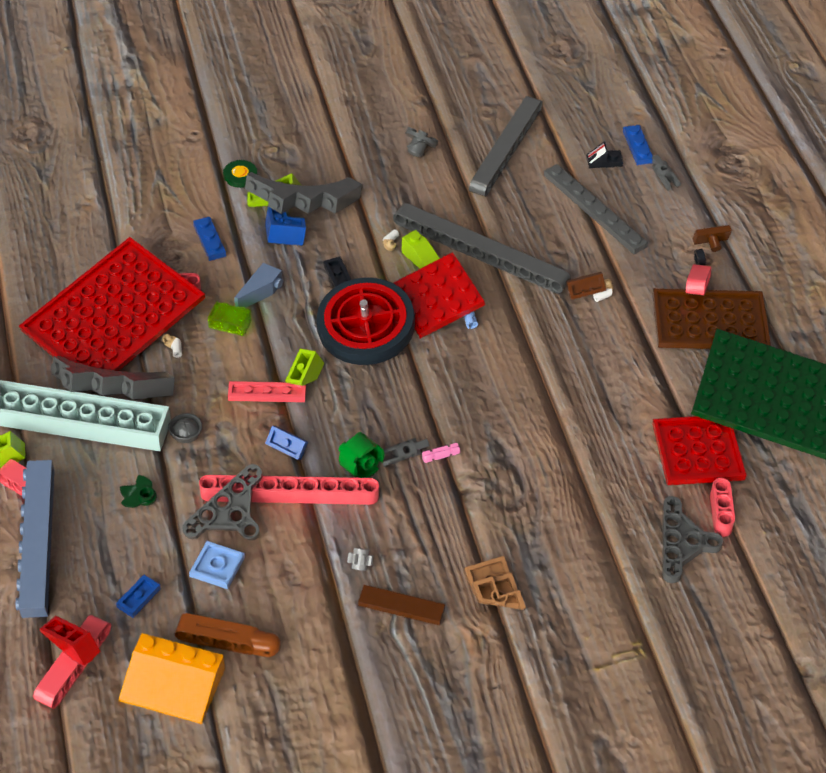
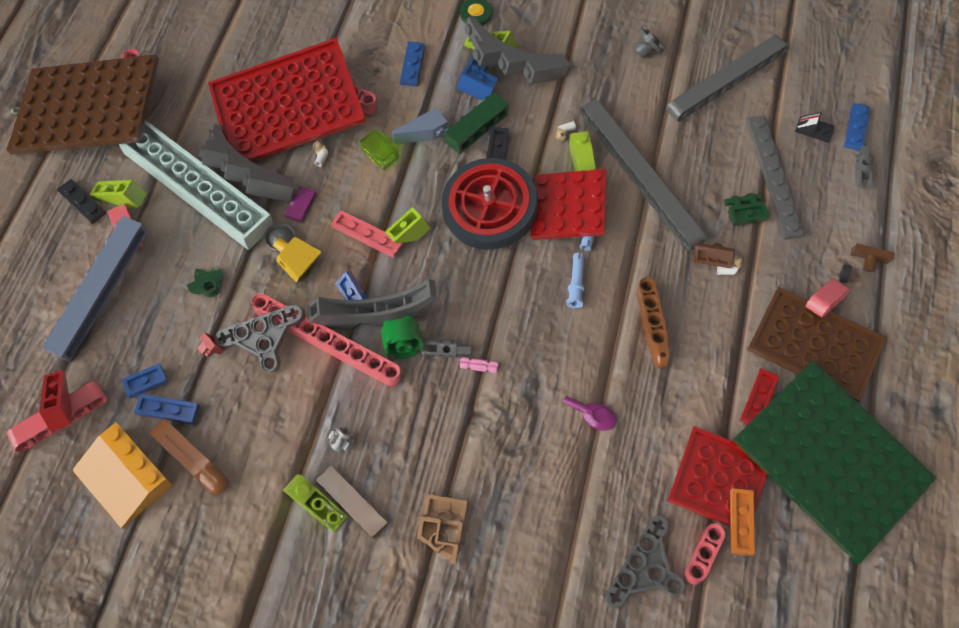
camera: 30 degrees right, 15 degrees up
(172, 609) = (166, 408): none -> blue plate
(182, 540) = (209, 345): none -> tile
(184, 394) = (300, 204): none -> magenta tile
(215, 434) = (295, 256): none -> yellow torso
(217, 564) = (224, 383): light blue plate -> none
(306, 263) = (476, 123): none -> dark green brick
(320, 447) = (374, 311): none -> dark grey arch
(367, 617) = (315, 502): none -> lime slope
(485, 358) = (576, 287): none -> light blue pin
(564, 448) = (594, 414): none -> magenta piece
(568, 356) = (659, 351): none -> dark orange piece
(592, 244) = (749, 213): none -> dark green plate
(690, 375) = (759, 395): none -> red plate
(737, 468) = (742, 522): none -> orange plate

